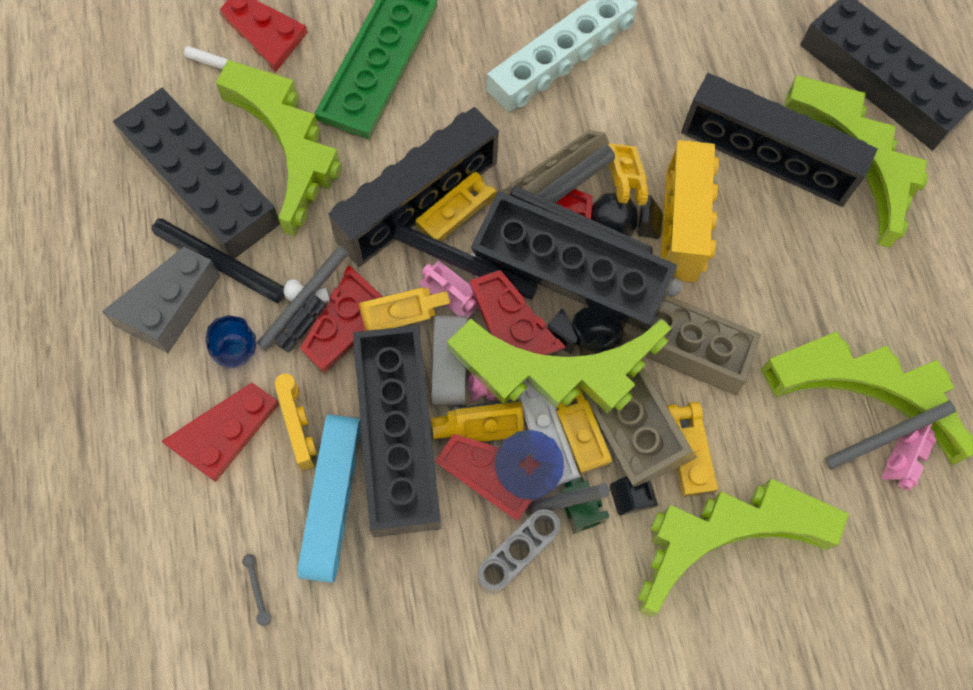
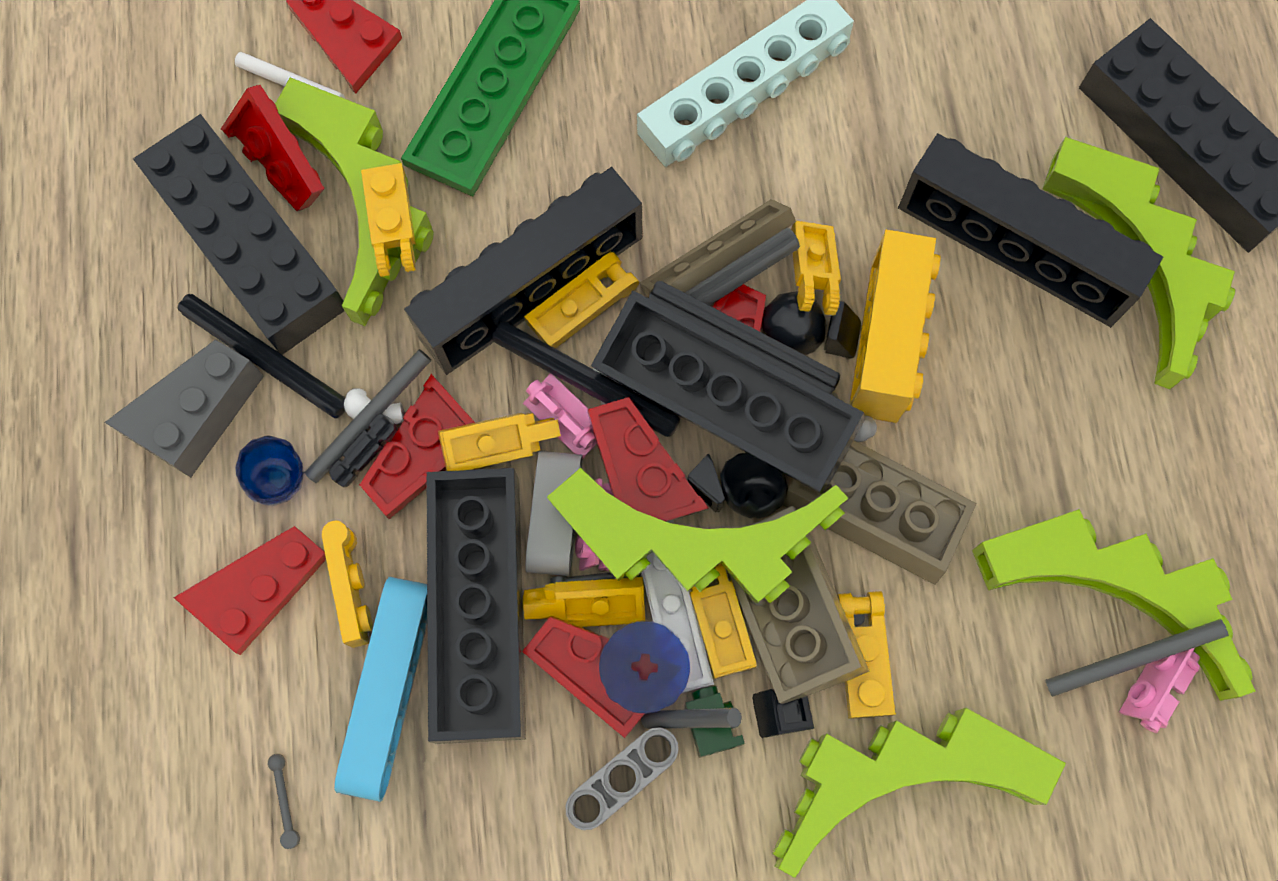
camera: 10 degrees right, 5 degrees up
(215, 106) = (269, 141): none -> red wing
(309, 151) = (389, 215): none -> yellow hinge

